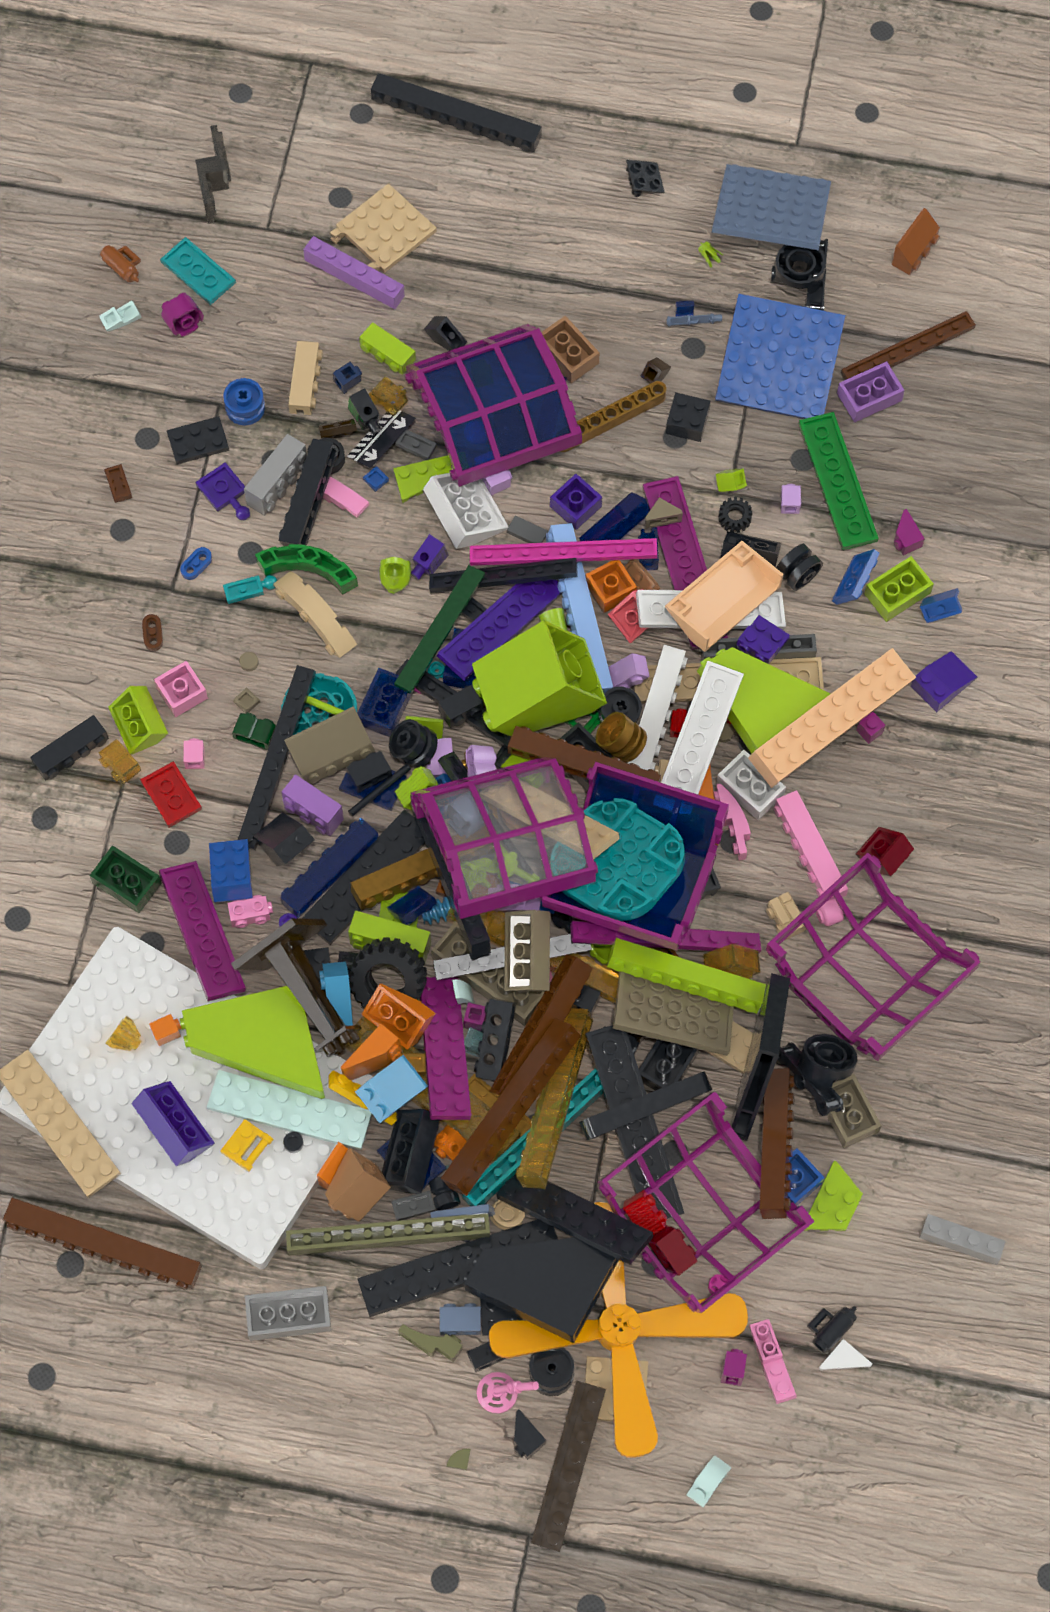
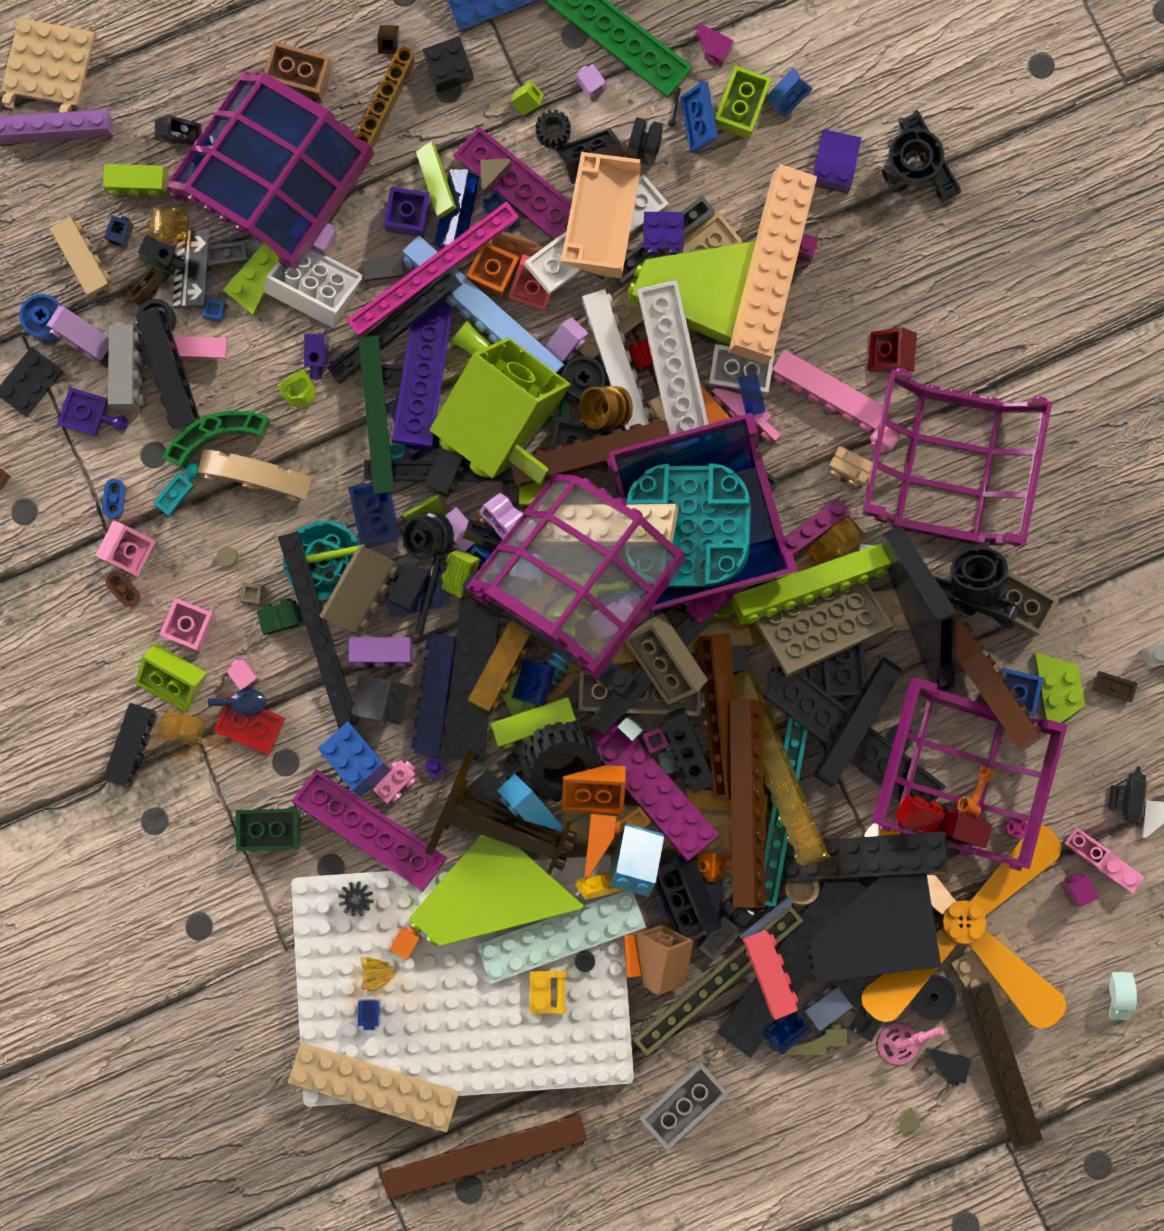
camera: 30 degrees left, 15 degrees up
(96, 1063) = (369, 1013): none -> clear blue brick
(158, 976) = (353, 905): none -> black gear
(172, 1122) = (472, 1018): dark purple slope -> none
(177, 604) = (125, 548): none -> bright pink slope
(179, 773) = (244, 702): none -> dark blue piece
(260, 426) = (78, 333): none -> lavender brick
(413, 1312) = (786, 1032): none -> clear blue hinge
(431, 1254) = (770, 974): none -> coral brick
(528, 736) = (528, 464): none -> lime slope
(615, 492) = (435, 179): none -> lime tile
(692, 1239) = (970, 805): none -> orange brick
(744, 804) = (751, 394): none -> clear blue tile
(833, 570) = (671, 123): none -> black hinge
(881, 1231) = (1114, 686): none -> dark brown plate
(1013, 703) = (915, 141): none -> black piece

